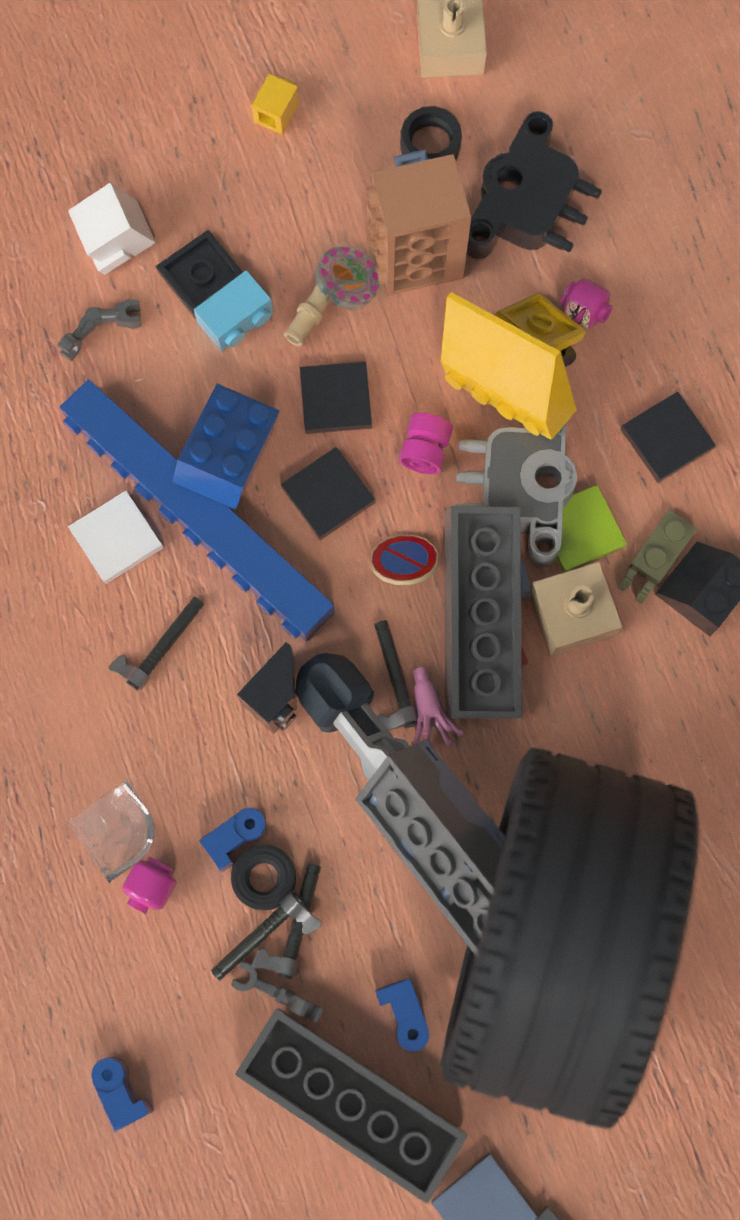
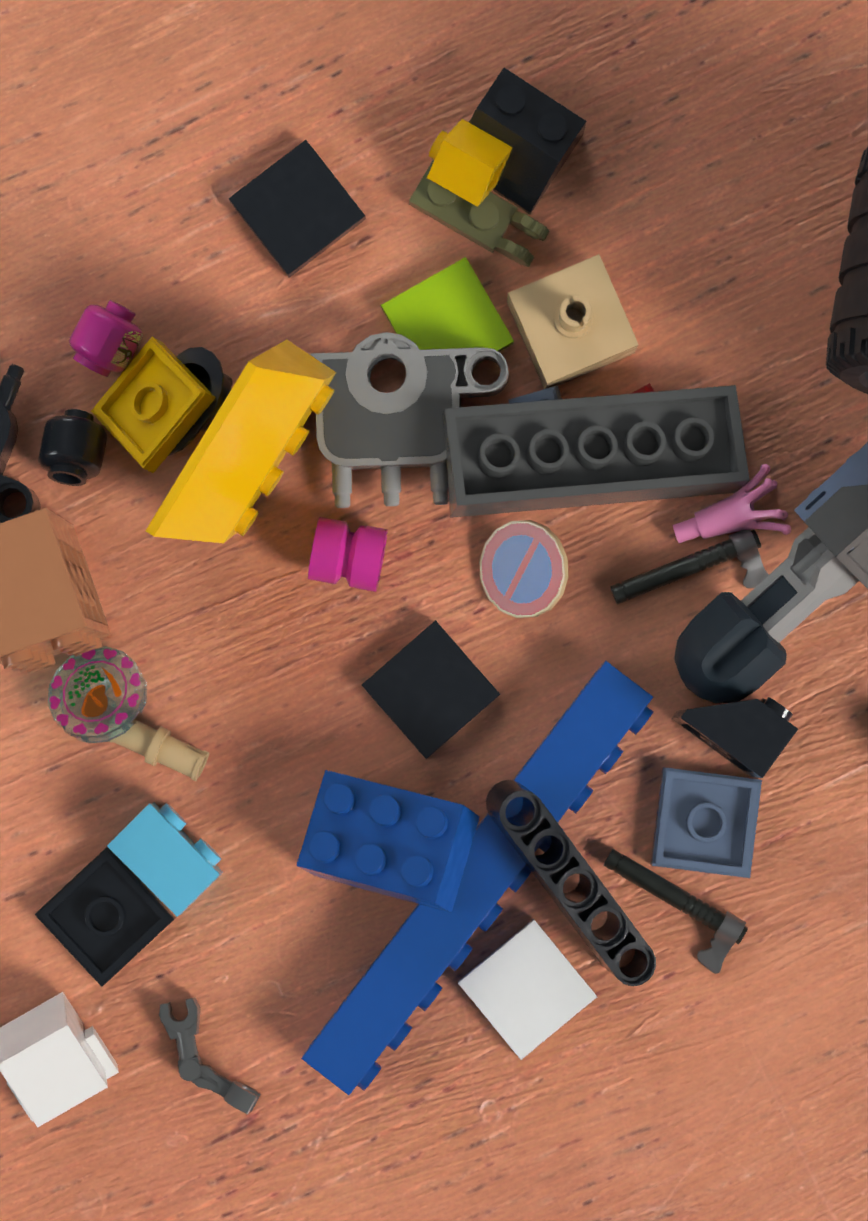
camera: 95 degrees left, 10 degrees up
(166, 568) = (589, 896): none -> black beam
(213, 669) = (706, 822): none -> sand blue tile
(335, 397) = (283, 694): black tile -> none
(514, 276) = (72, 448): none -> black head
(693, 546) = (468, 161): none -> yellow brick

